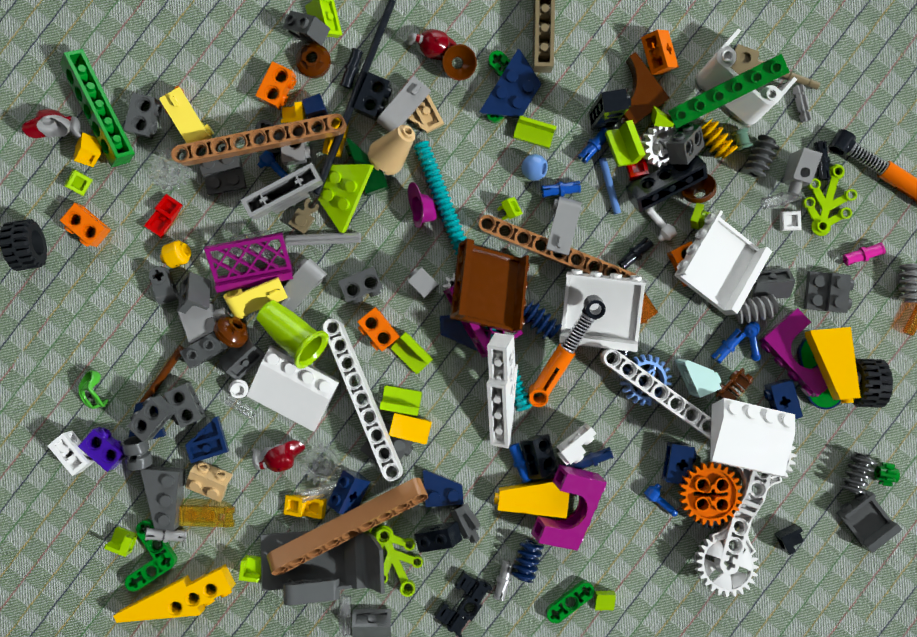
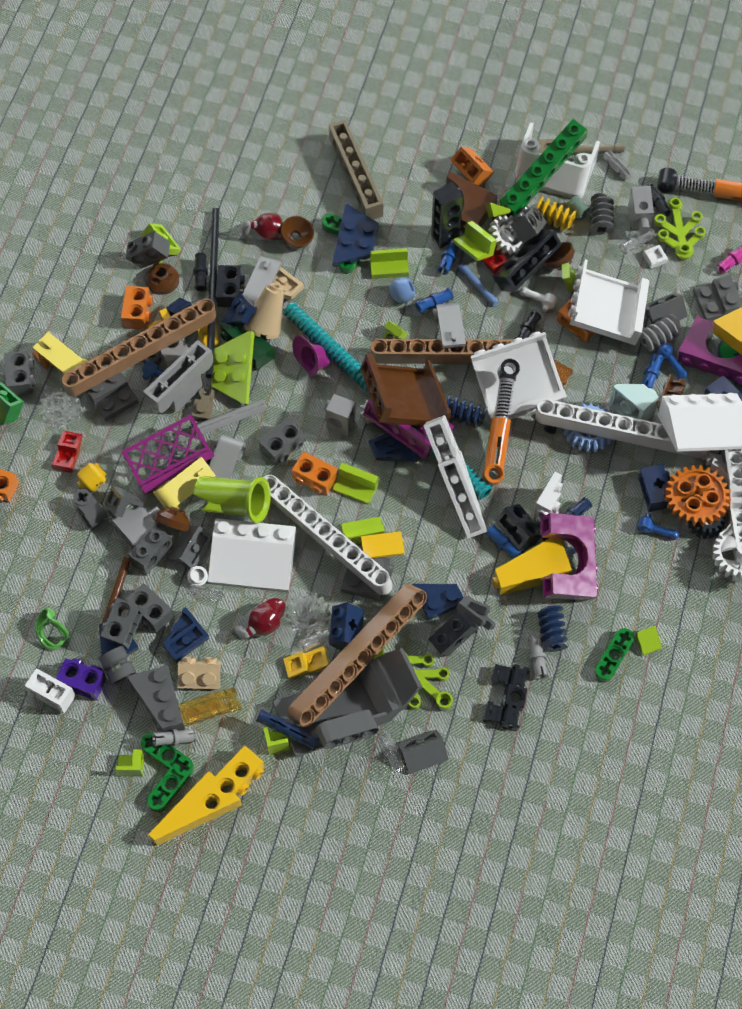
camera: 25 degrees left, 25 degrees down
(255, 562) = (287, 729): none -> dark blue pin
(370, 134) = (240, 311): none -> dark blue wing

